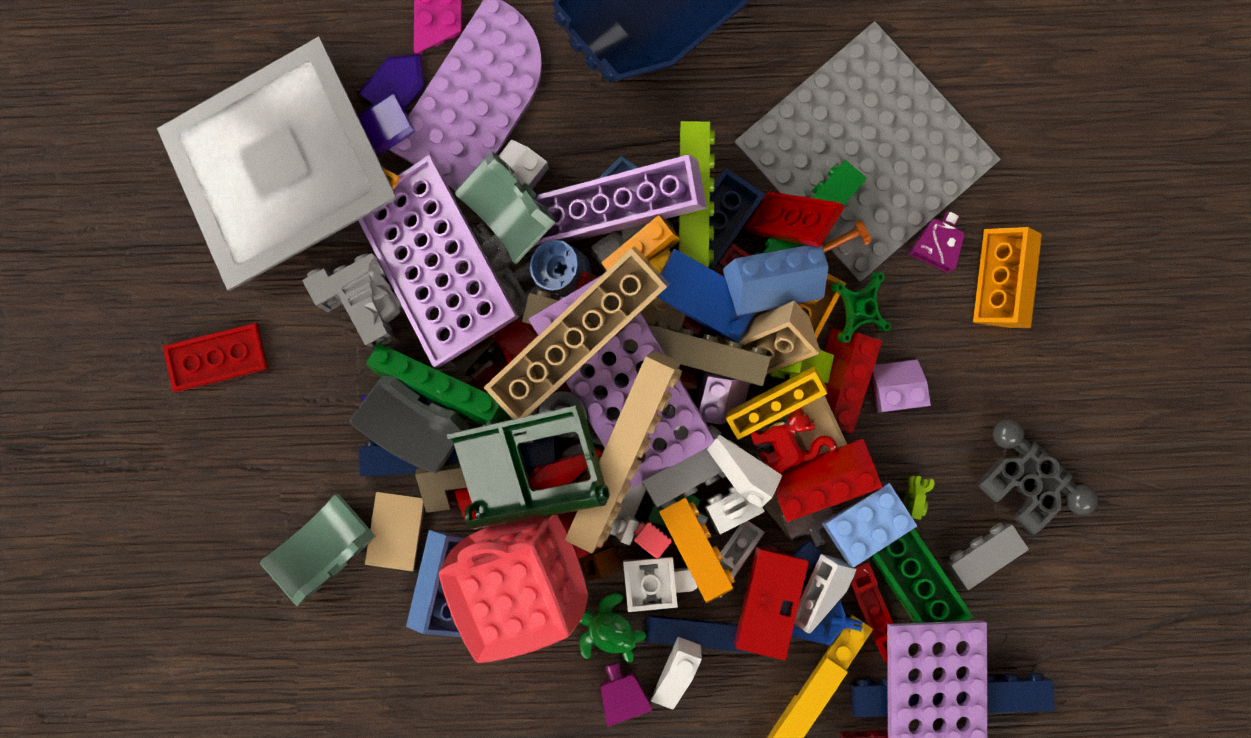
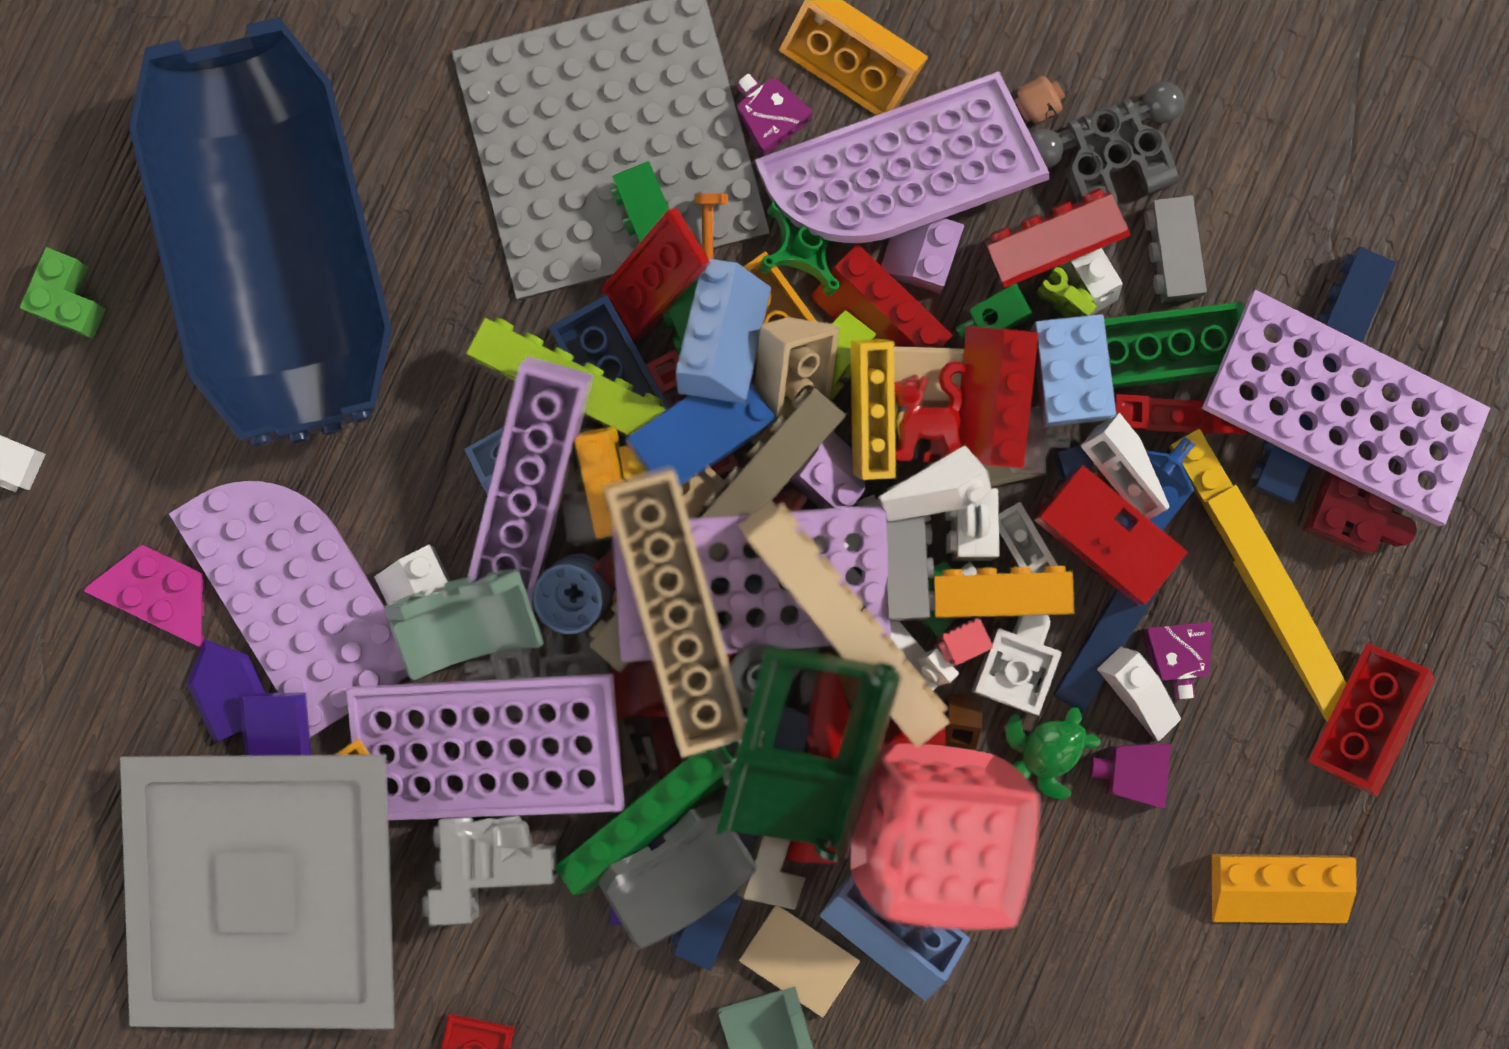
camera: 70 degrees left, 0 degrees up
(715, 688) = (1180, 654): none -> magenta torso
(890, 461) = (1006, 305): none -> green torso
(941, 508) = (1096, 276): none -> white torso
(951, 349) = (907, 165): none -> lavender plate
(954, 471) = (1056, 237): none -> slope
(1040, 416) = (1040, 100): none -> nougat head

